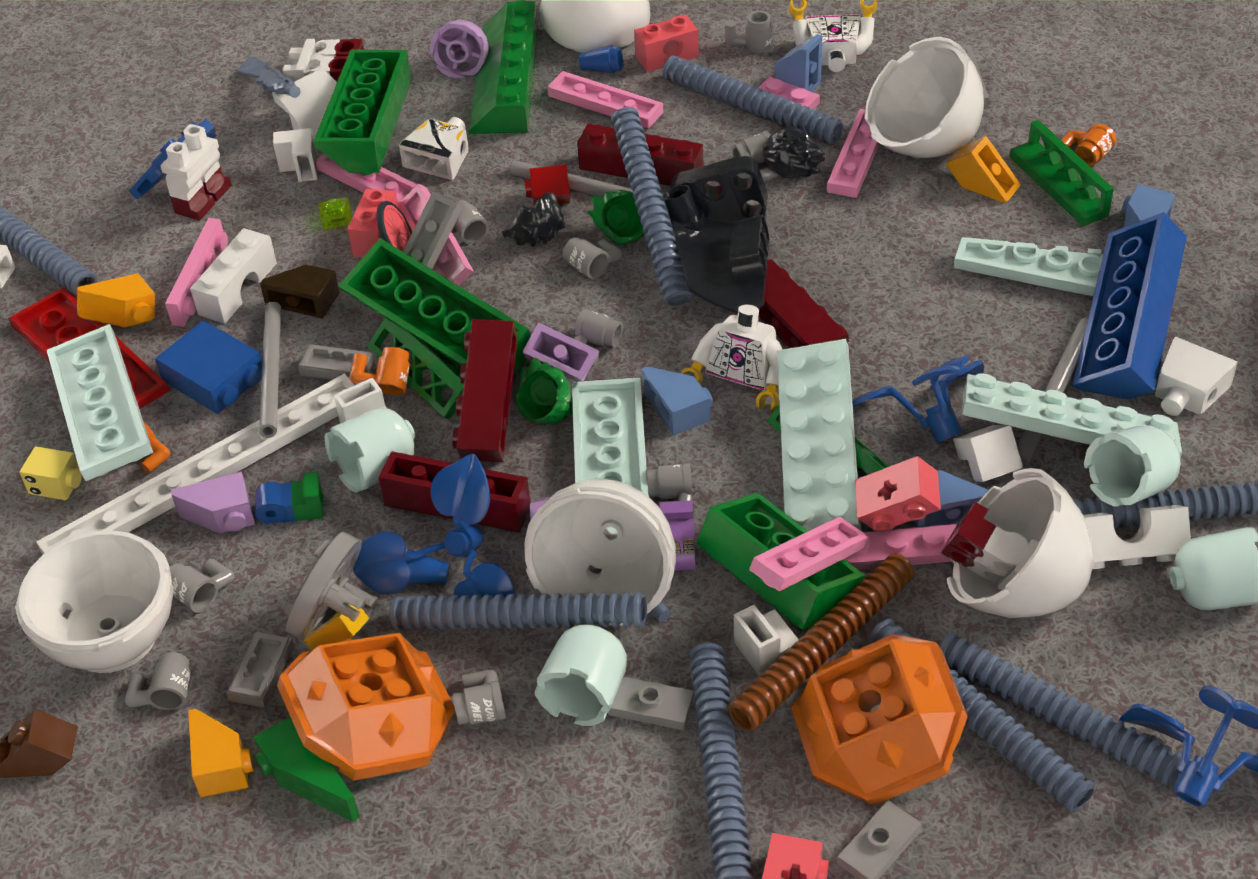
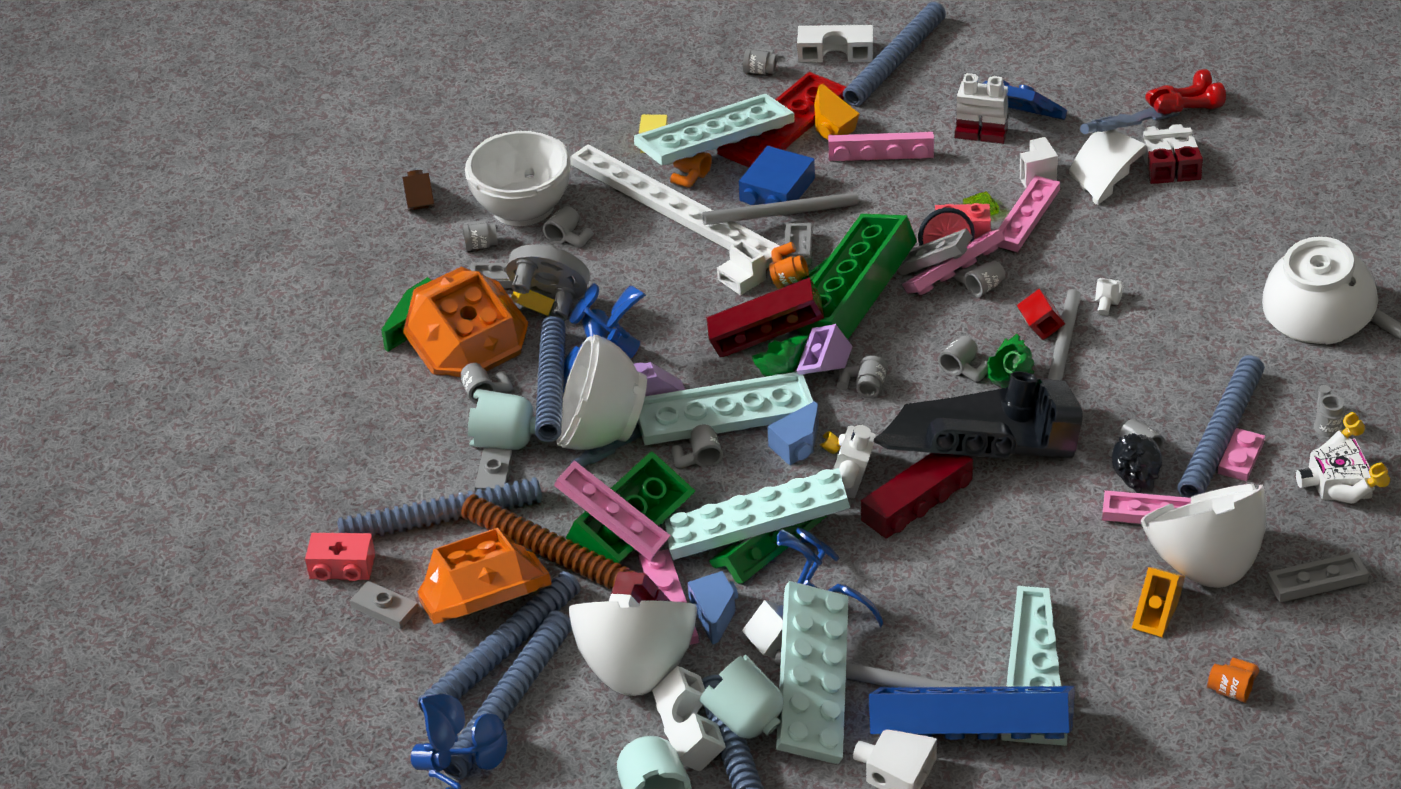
camera: 80 degrees right, 5 degrees down
(216, 503) = (639, 219): lavender slope -> none
(217, 756) = (422, 264): light orange slope -> none
(219, 287) = (898, 164): white arch -> none
(229, 29) = (1199, 95): none -> red piece
(290, 500) = (650, 249): leg -> none
(302, 290) = (874, 199): dark brown slope -> none
(364, 109) = (1098, 181): green slope -> none
(365, 445) = (699, 273): light aqua cylinder -> none
(408, 481) = (666, 323): dark red brick -> none
(436, 148) = (1079, 241): white torso -> none
(458, 43) = (1221, 224): lavender cylinder -> none
(506, 77) = (1203, 264): green slope -> none
(522, 142) = (1108, 293): none -> white piece
(537, 222) = (990, 315): black hair -> none
(601, 154) = (1102, 364): dark red brick -> none
(602, 97) = (1187, 332): bright pink plate -> none
(604, 59) = (1248, 321): blue cone -> none
(650, 206) = (1022, 353): sand blue piece -> none
(667, 38) = (1284, 354): coral brick -> none
(681, 522) = (633, 454): medium lavender leg -> none
(762, 637) = (551, 511): white piece -> none
(802, 64) = (1272, 451): medium blue slope -> none
(897, 494) = (692, 563): coral brick -> none
(1060, 179) = (1175, 661): green fence -> none
(1146, 203) = (1123, 726): medium blue slope -> none

